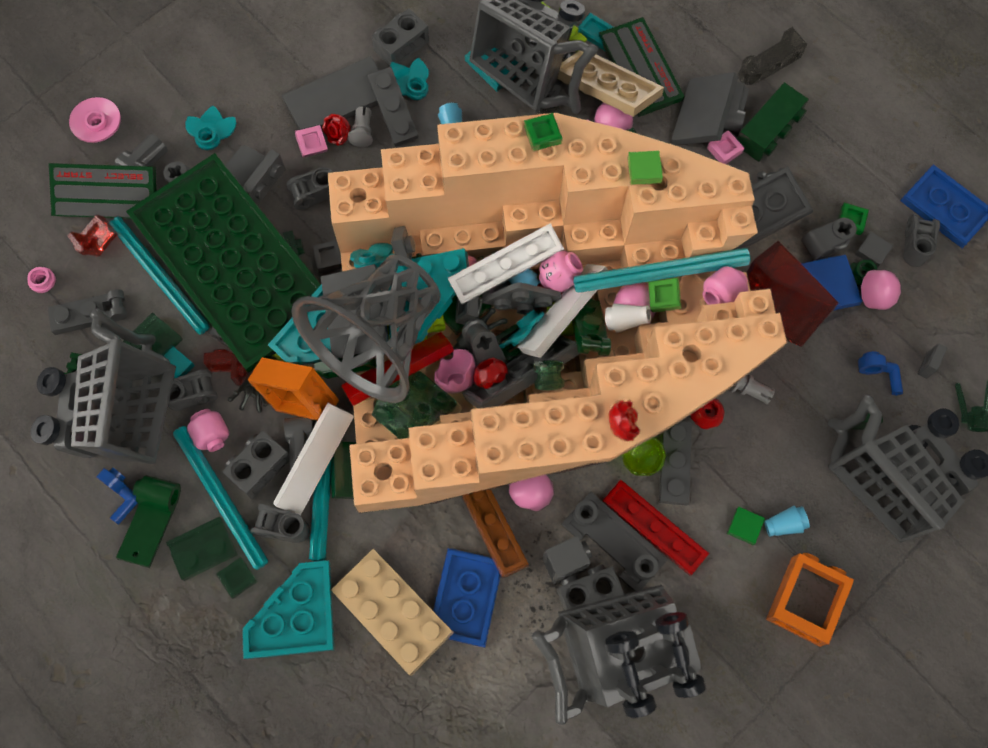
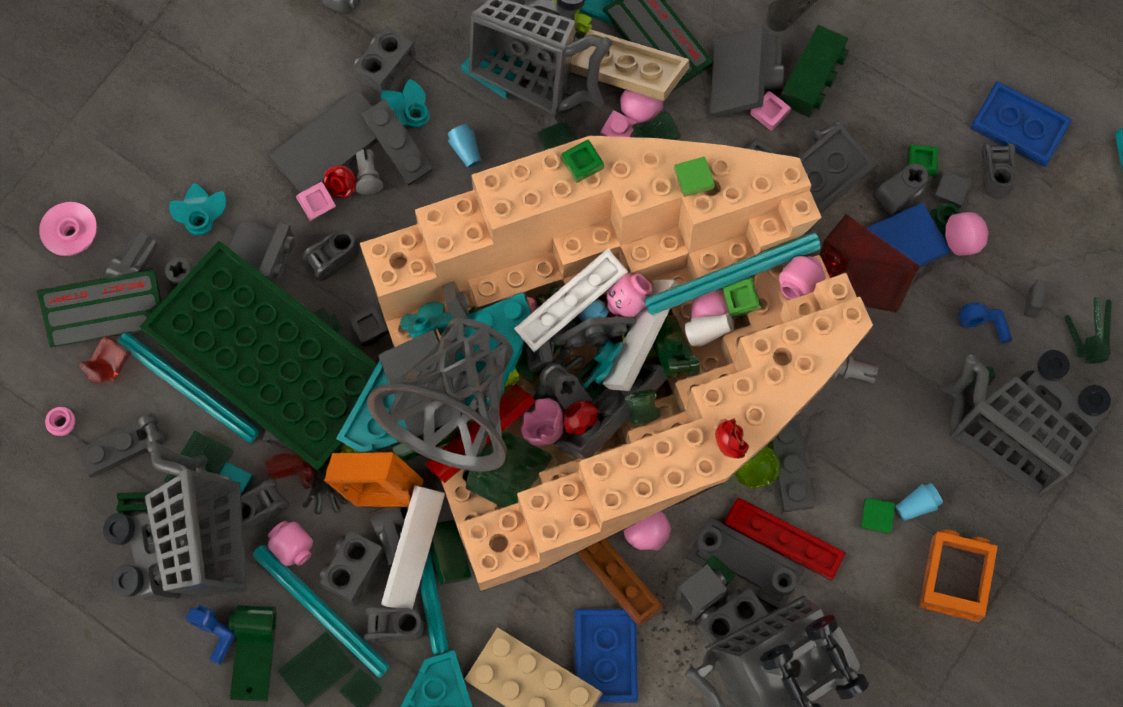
camera: 10 degrees left, 0 degrees up
(584, 535) = (714, 562): none -> dark green tile
(710, 420) = (818, 413): red plate -> none

